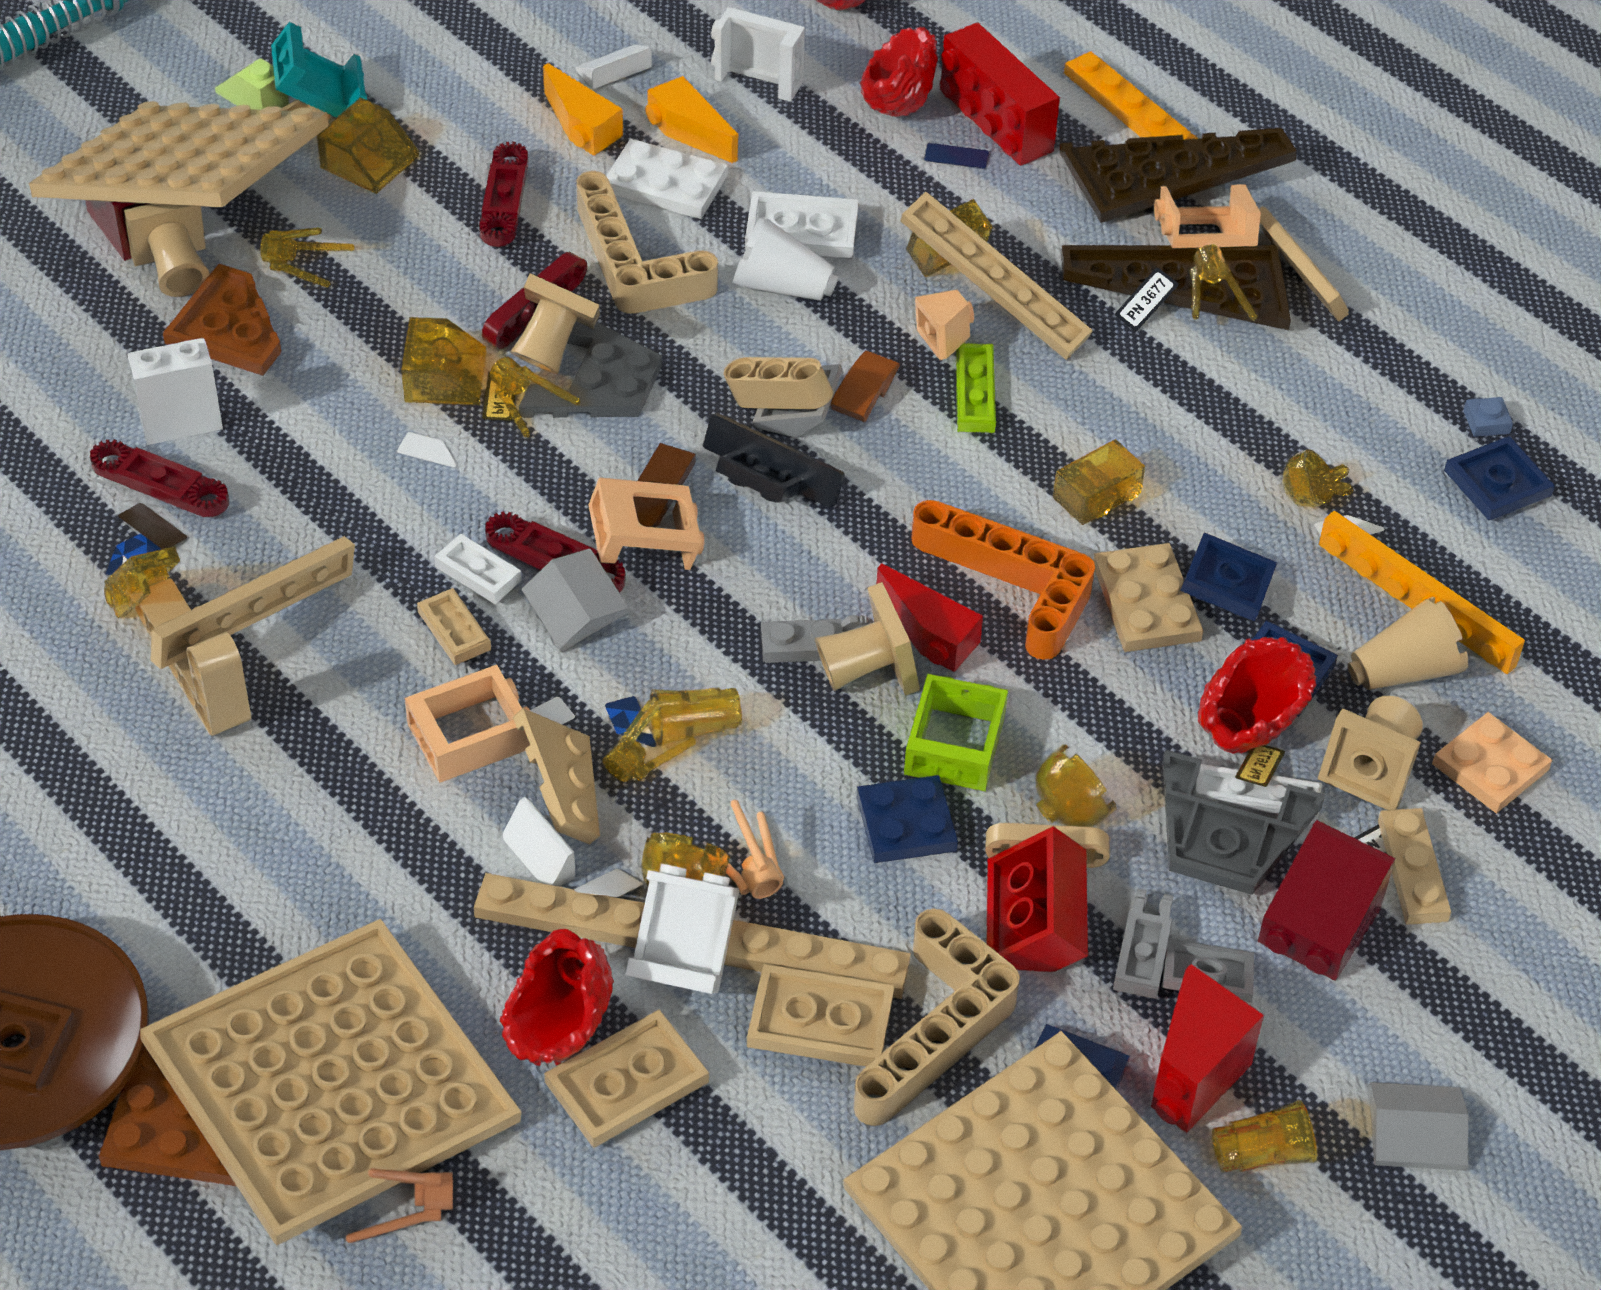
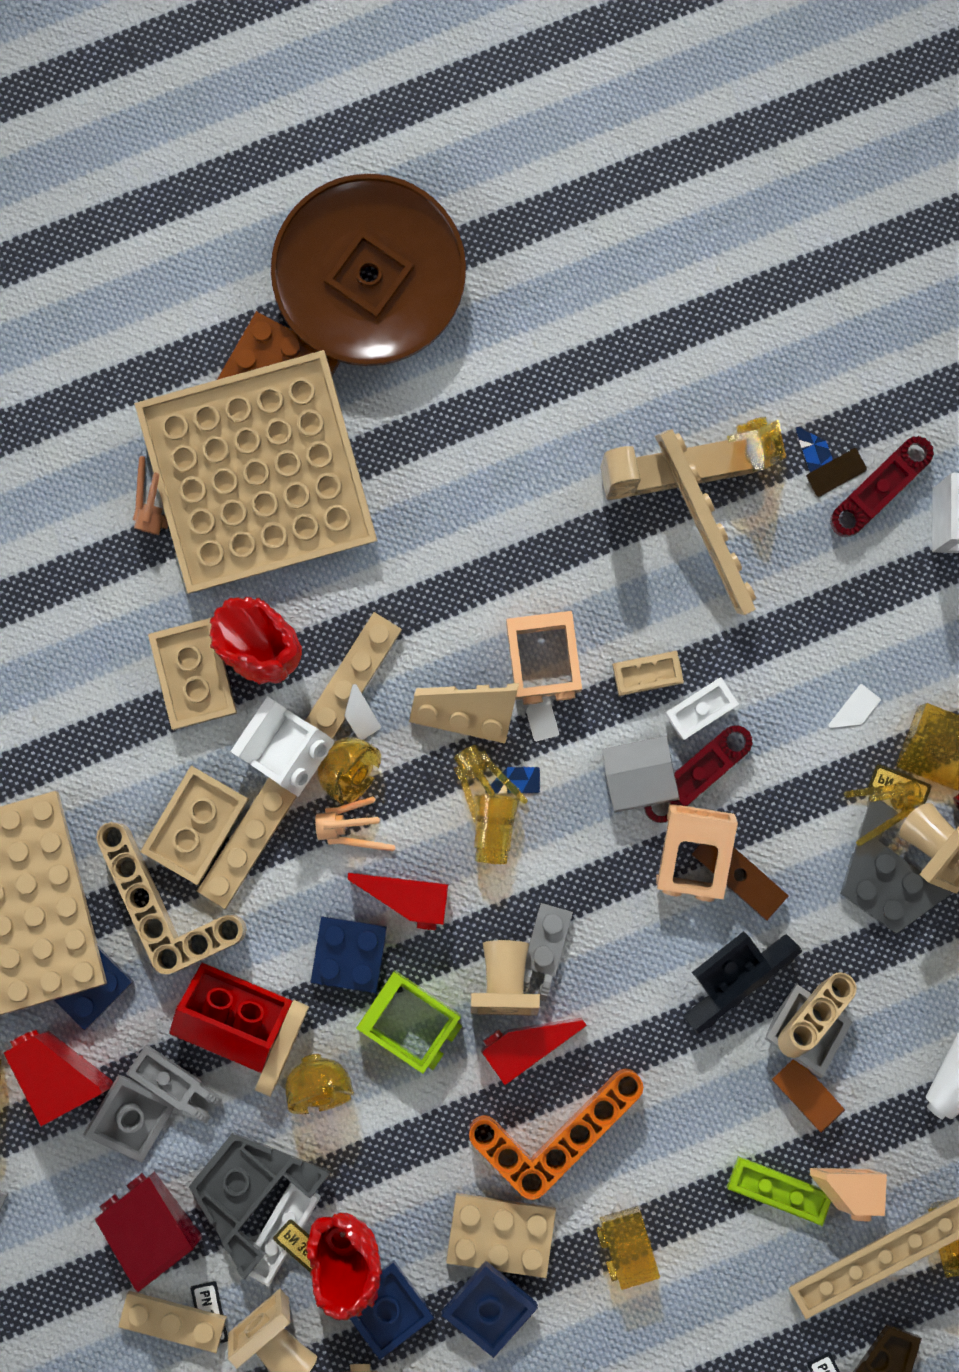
camera: 110 degrees right, 35 degrees up
(539, 845) = (412, 674): white slope -> none
(811, 765) = (412, 899): none -> red slope

